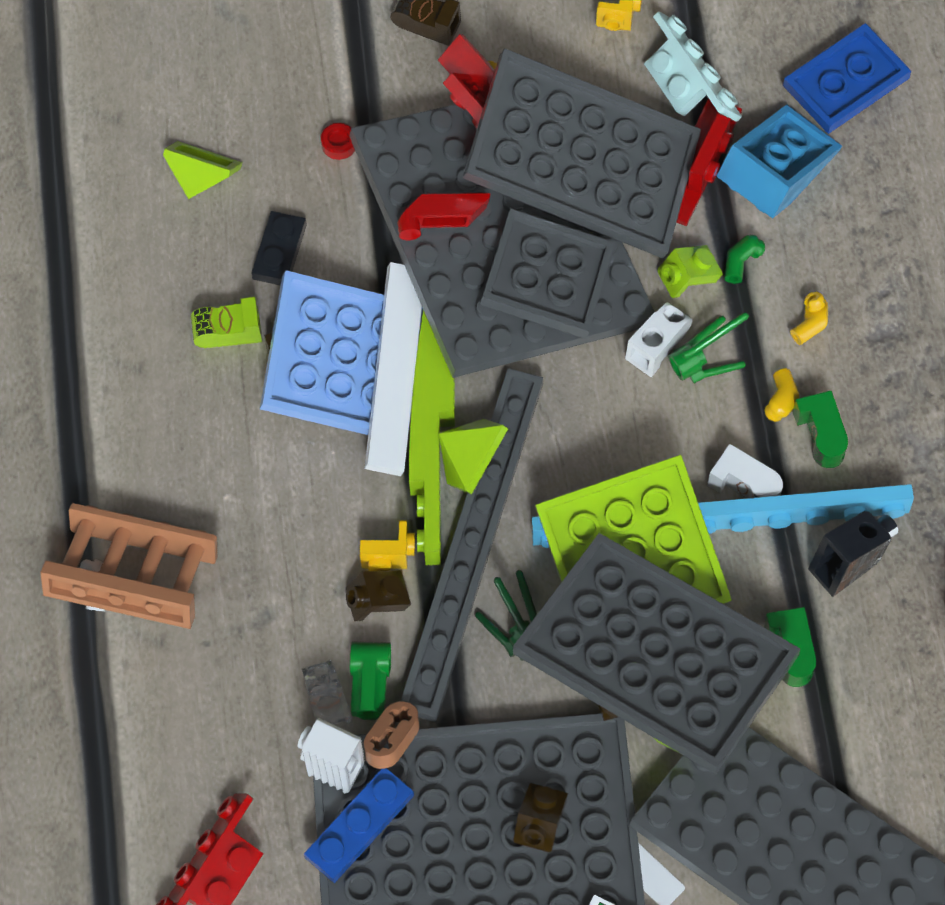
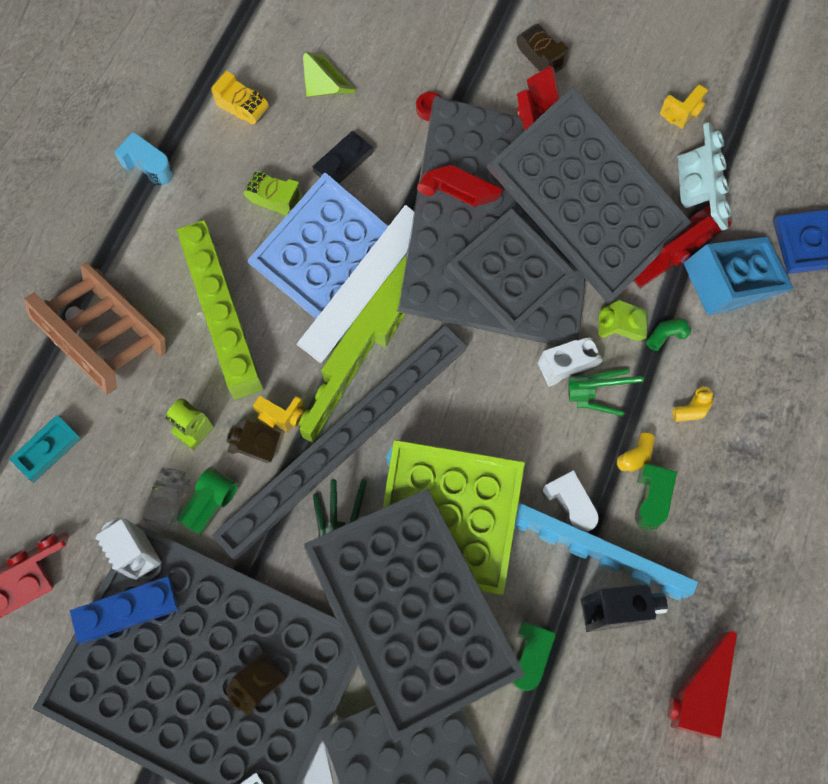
camera: 30 degrees right, 5 degrees up
(55, 360) = (147, 158): none -> medium azure leg
(119, 240) = (238, 99): none -> yellow leg
(156, 721) = (45, 448): none -> teal plate
(253, 477) = (219, 310): none -> lime brick
(301, 611) = (189, 423): none -> lime leg
(397, 738) = (188, 555): nougat beam -> none
(469, 451) = (378, 371): lime slope -> none

